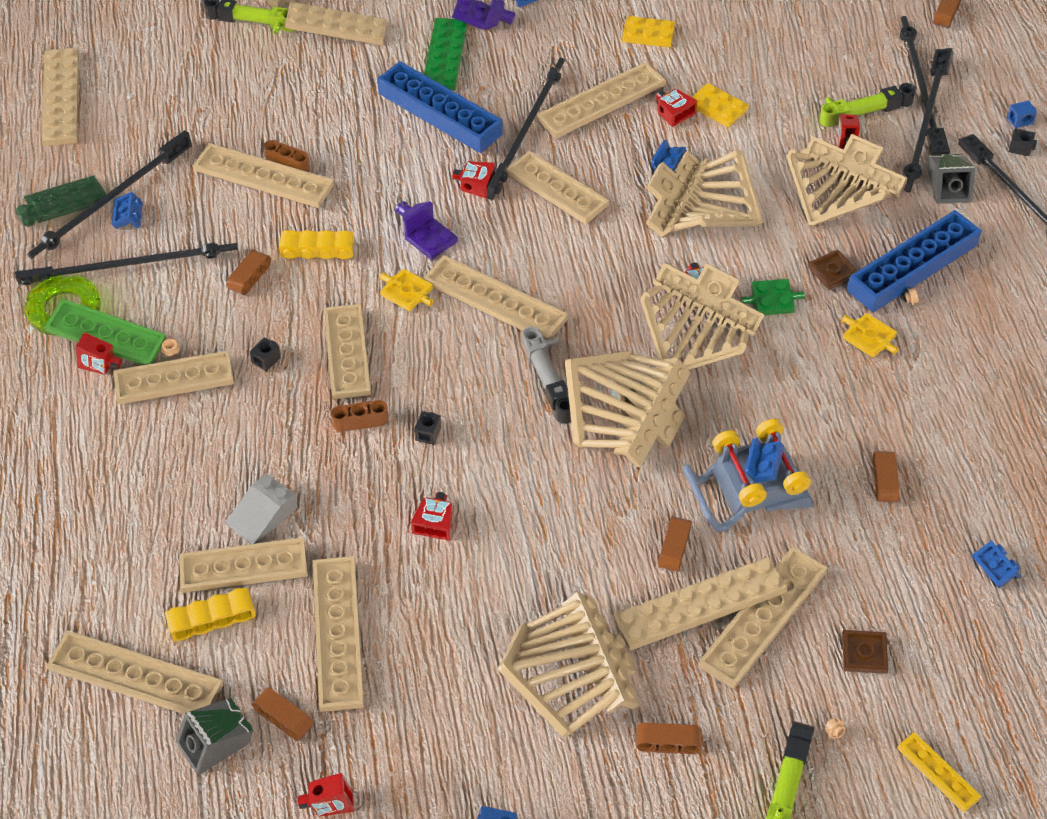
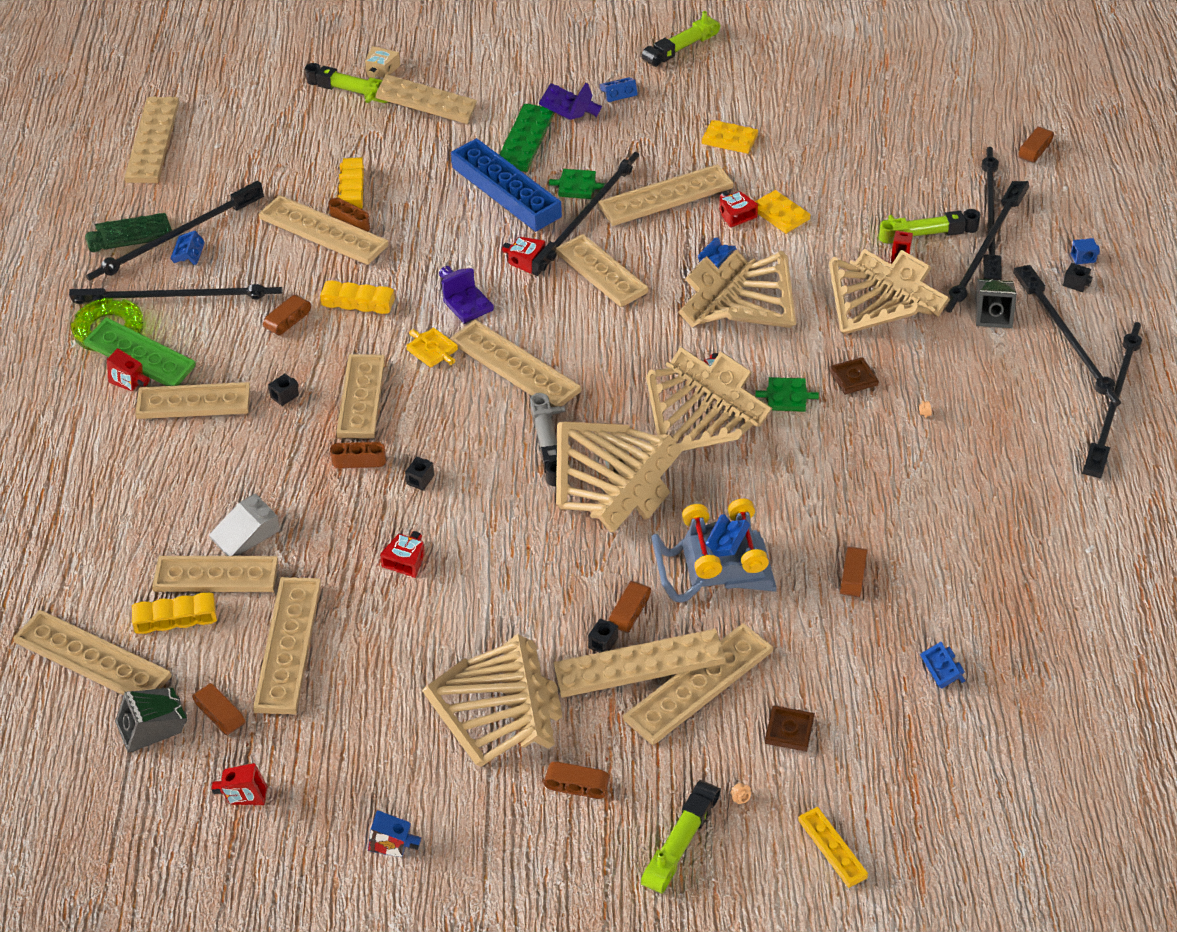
camera: 10 degrees right, 5 degrees down
(170, 347) = (197, 373): light nougat plate -> none
(281, 119) = (352, 181): none -> yellow brick
(509, 97) = (576, 183): none -> green plate
(654, 586) = (603, 636): none -> black brick
(869, 335) = (873, 439): yellow plate -> none
(913, 261) = (935, 375): blue brick -> none

